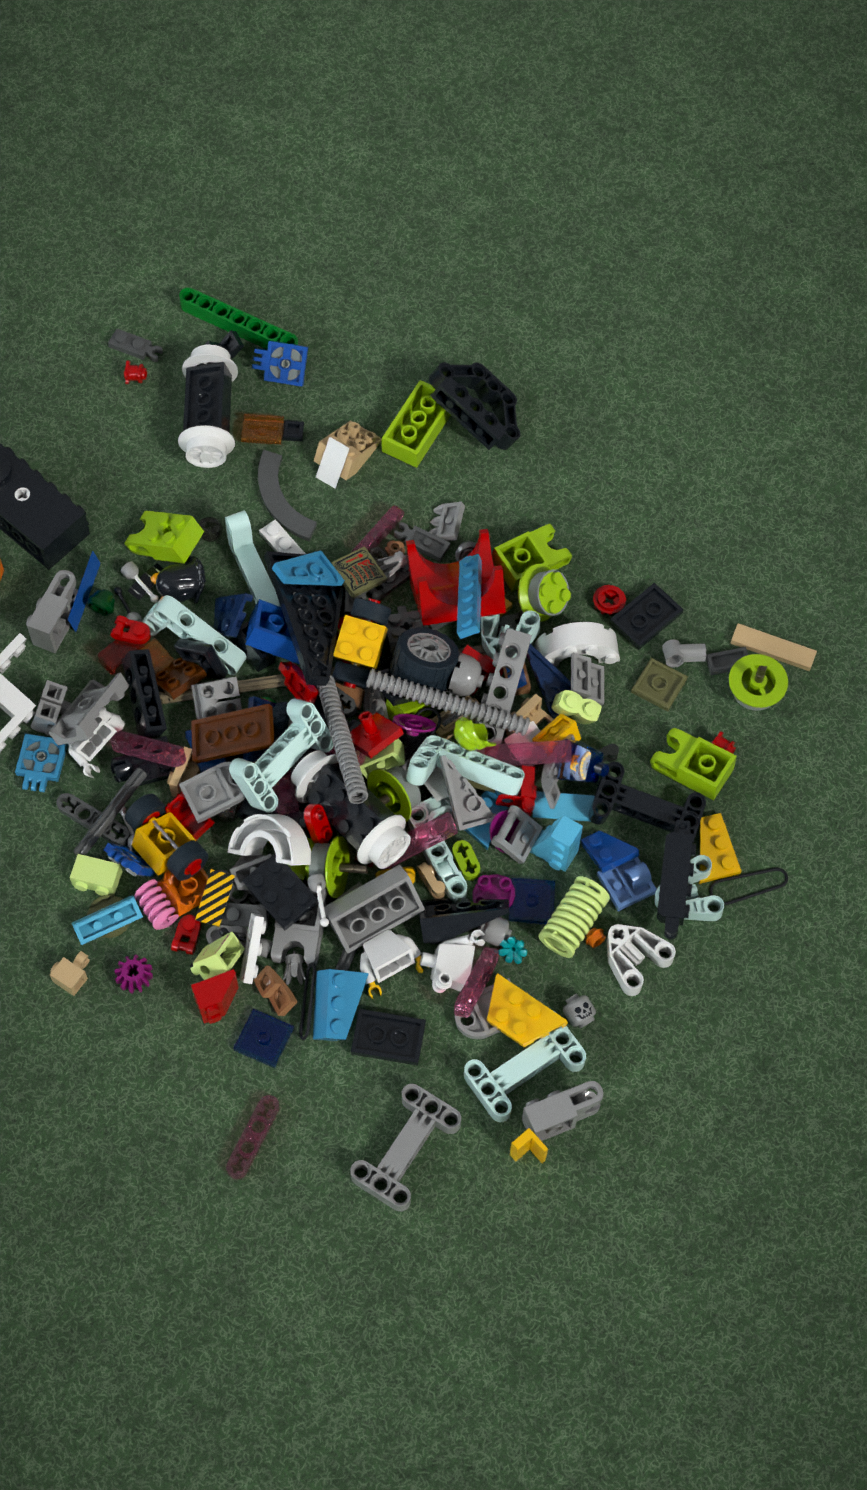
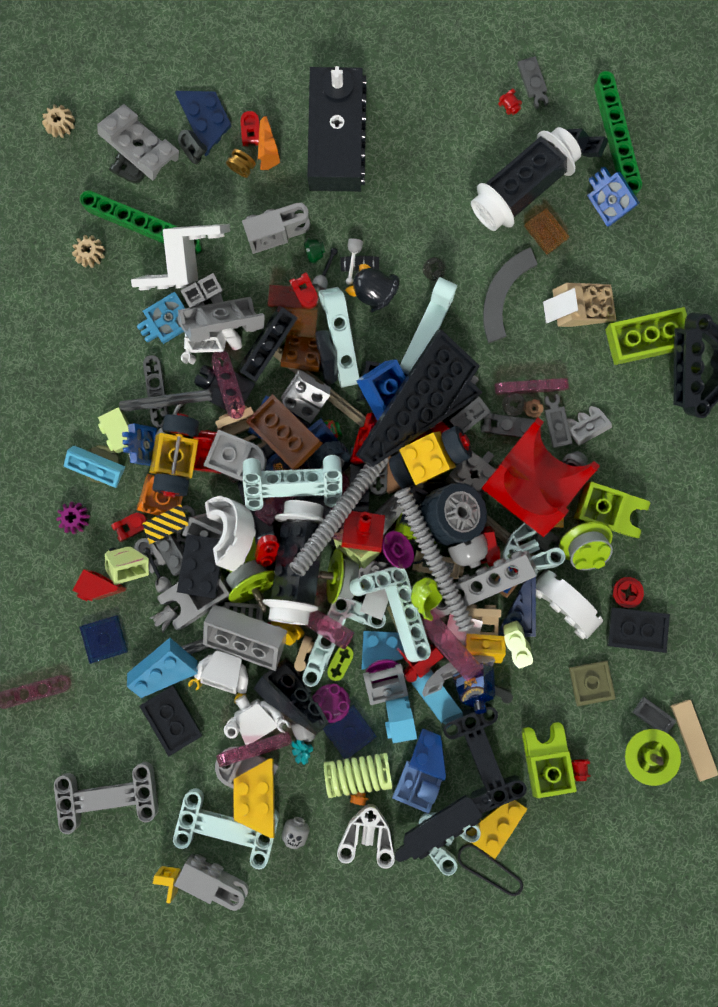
camera: 55 degrees right, 20 degrees up
(69, 974) = (37, 477): tan brick -> none
(84, 591) = (311, 230): blue sticker -> none
(154, 906) = (129, 488): bright pink piece -> none
(166, 536) = (398, 247): lime brick -> none
(230, 614) = (374, 345): dark blue wing -> none
(252, 948) = (150, 581): white plate -> none
(273, 987) = (141, 613): medium nougat slope -> none
(279, 539) = (469, 328): white plate -> none
(293, 430) = (565, 253): black tile -> none
(308, 570) = (452, 370): dark azure wing -> none
(310, 1003) = (148, 644): black piece -> none
(317, 884) = (223, 589): hinge -> none
(359, 572) = (487, 403): olive tile -> none
(397, 559) = (523, 420): light grey piece -> none
(467, 807) = (375, 633): light grey wing -> none
(469, 596) = (527, 505): dark azure plate -> none
(587, 678) = (547, 633): light grey slope -> none
(678, 653) = (626, 678): light grey piece -> none

